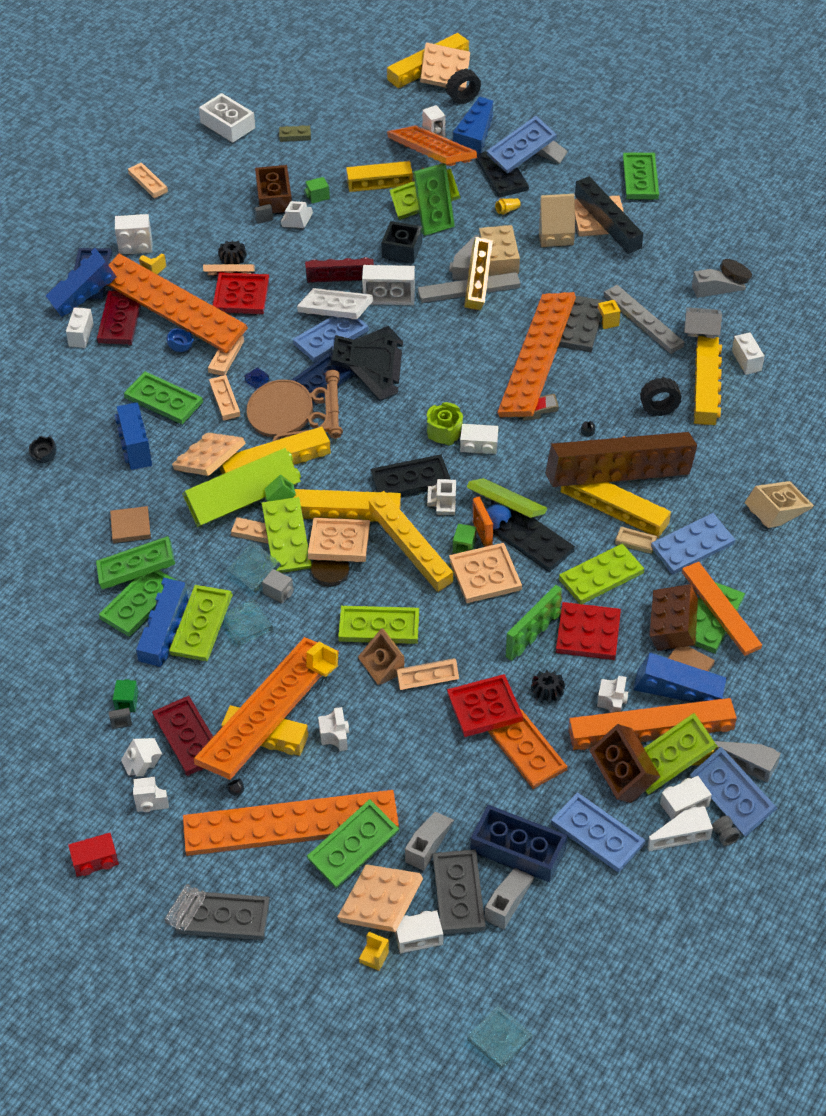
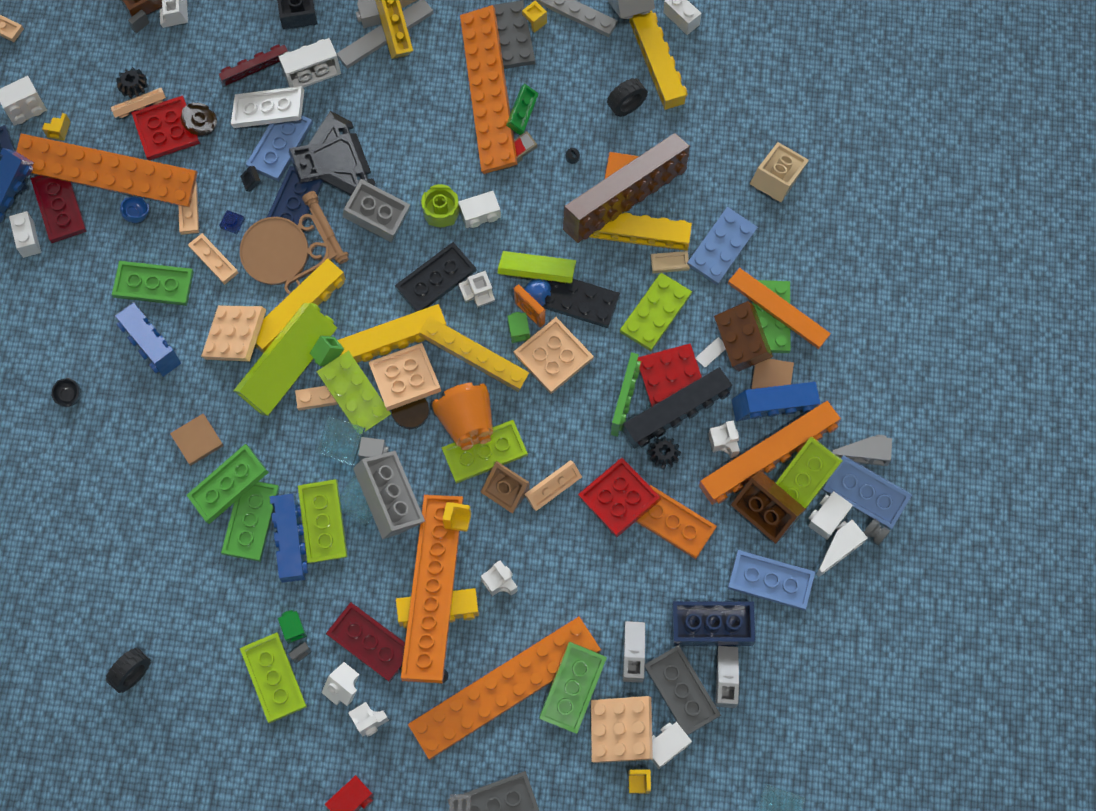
camera: 25 degrees left, 20 degrees up
(85, 730) = (273, 677): none -> lime plate
(270, 619) = (388, 494): none -> light grey slope
(272, 294) = (198, 119): none -> dark brown tile
(290, 350) = (250, 178): none -> black tile
(376, 579) = (466, 414): none -> orange cone
(385, 406) = (376, 210): none -> light grey brick
(559, 377) = (522, 109): none -> green tile
(577, 649) = (677, 408): none -> black brick
(636, 626) = (711, 352): none -> white sticker

